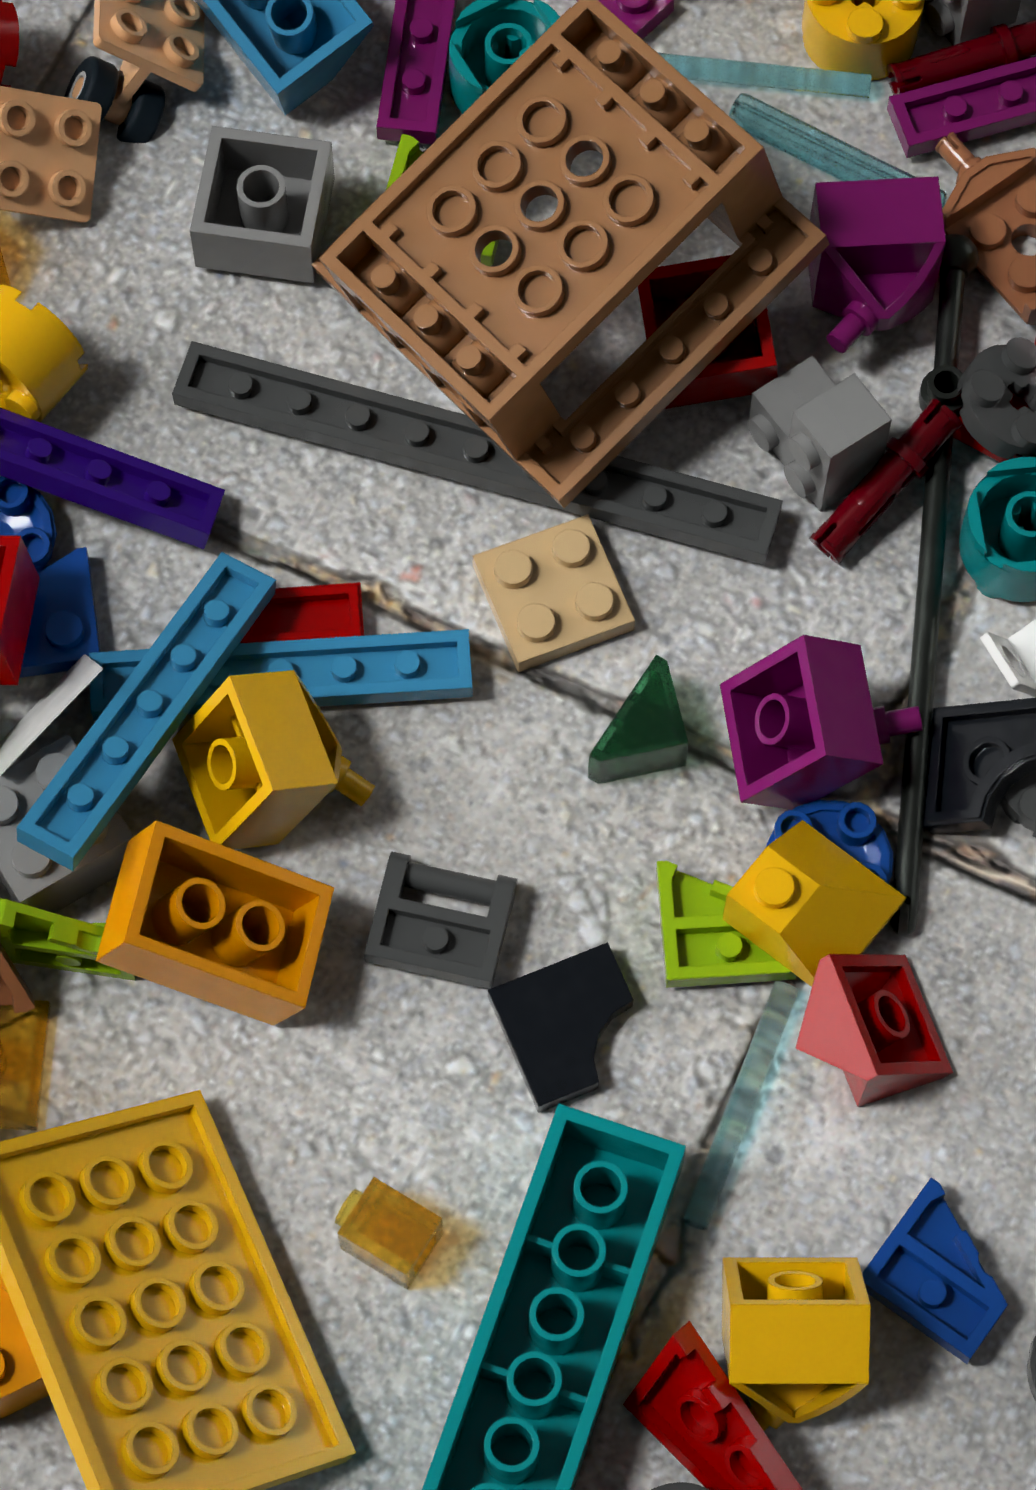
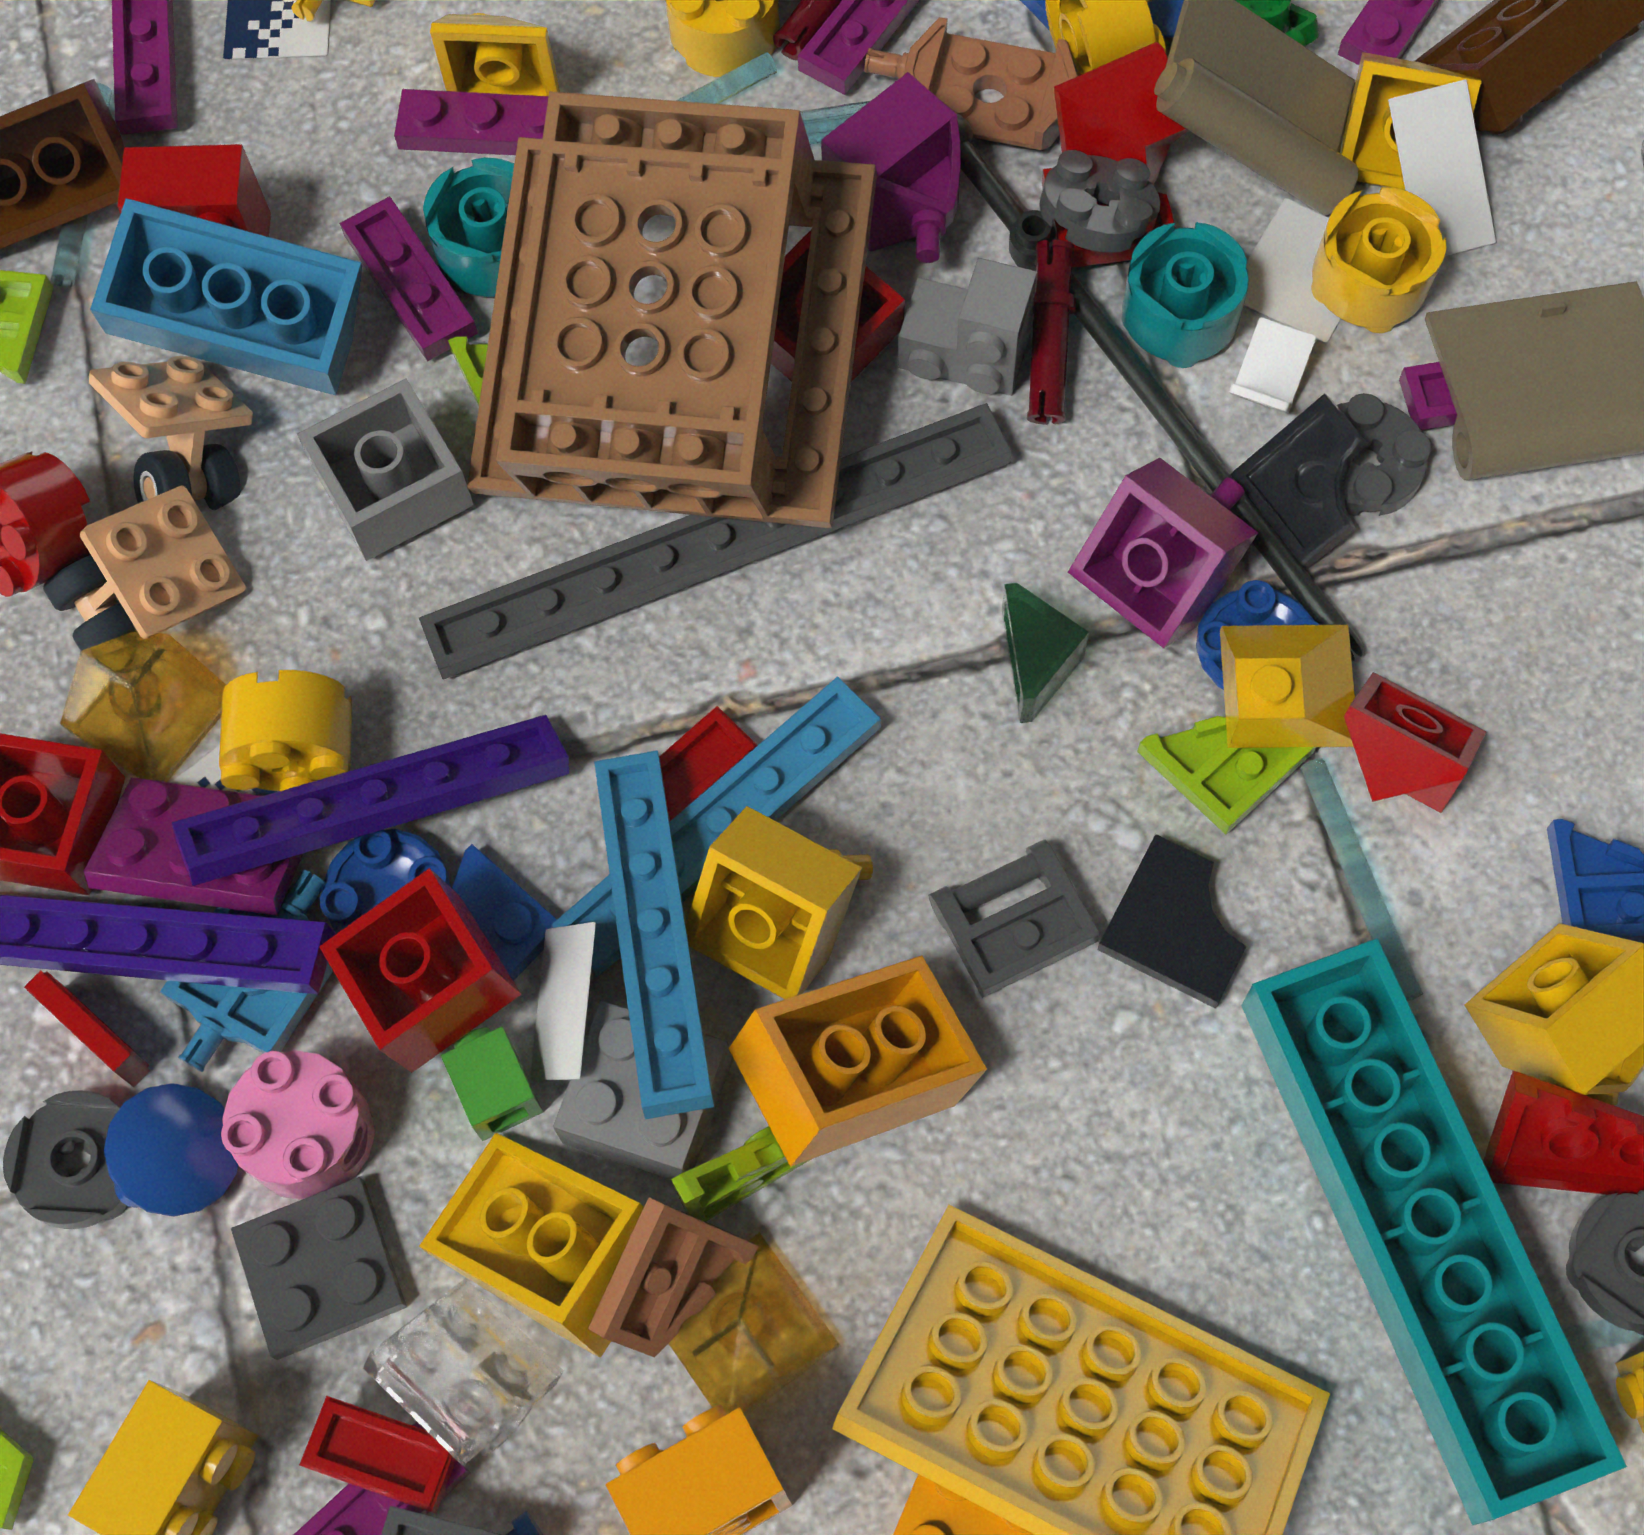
camera: 35 degrees left, 0 degrees up
(388, 1231) = (1197, 1195): clear yellow brick -> none
(553, 593) = (871, 602): tan plate -> none

